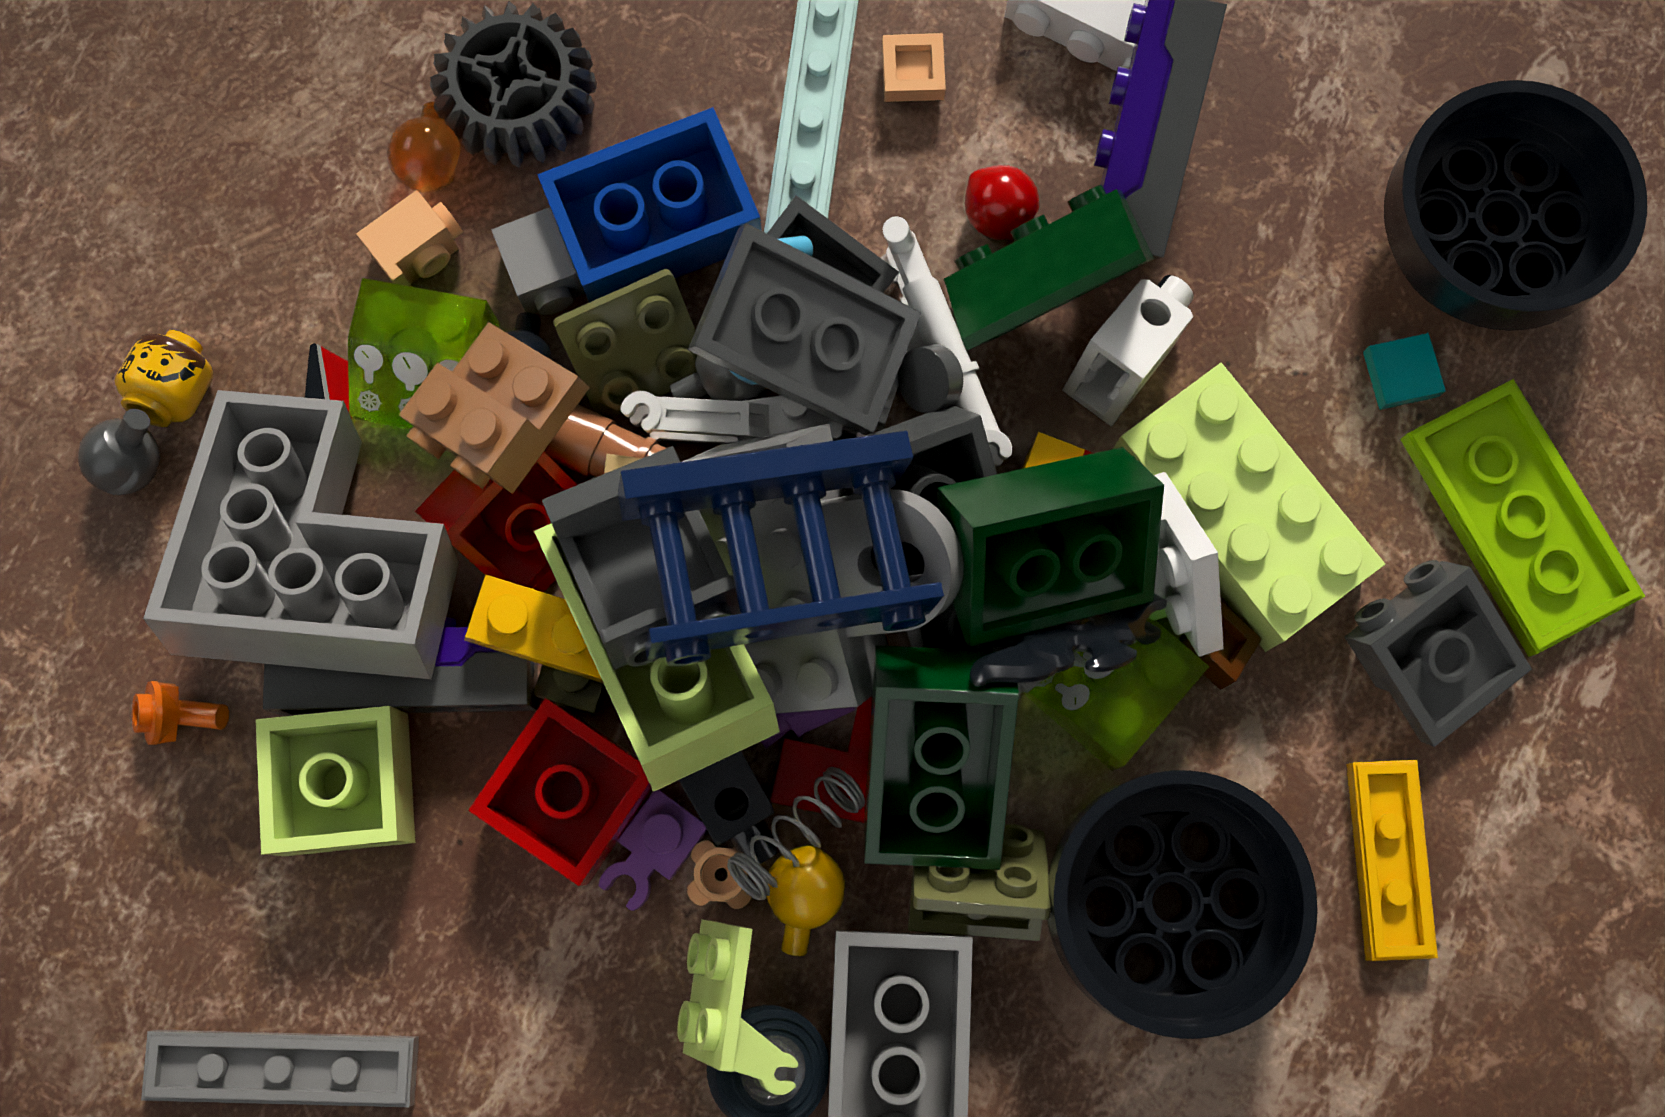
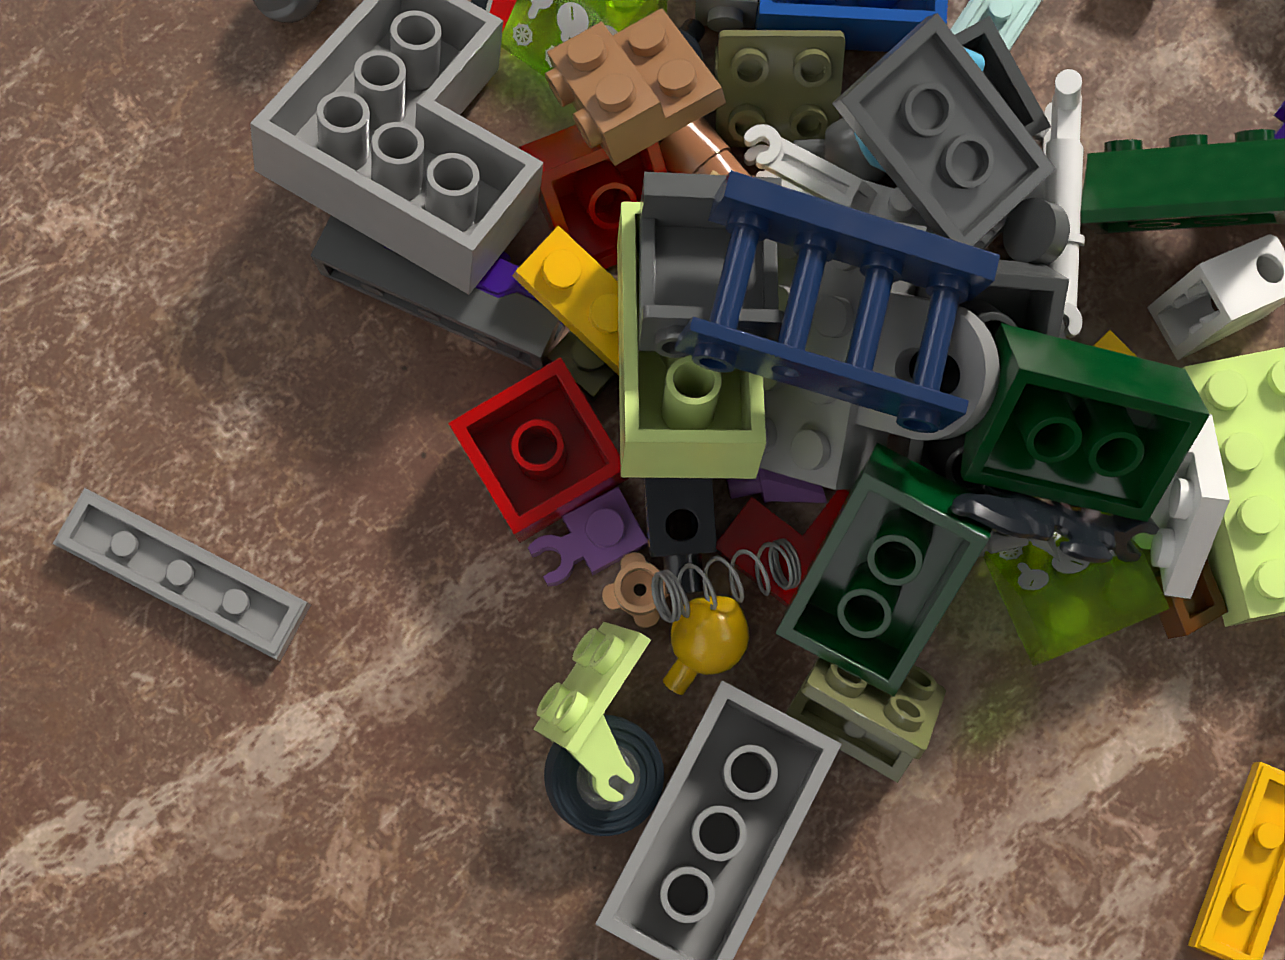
camera: 25 degrees right, 0 degrees up
(161, 711) = (219, 221): orange plate -> none
(334, 781) = (343, 347): yellowish green brick -> none
(1000, 200) = (1170, 108): red piece -> none
(1258, 949) = (1130, 788): black wheel -> none

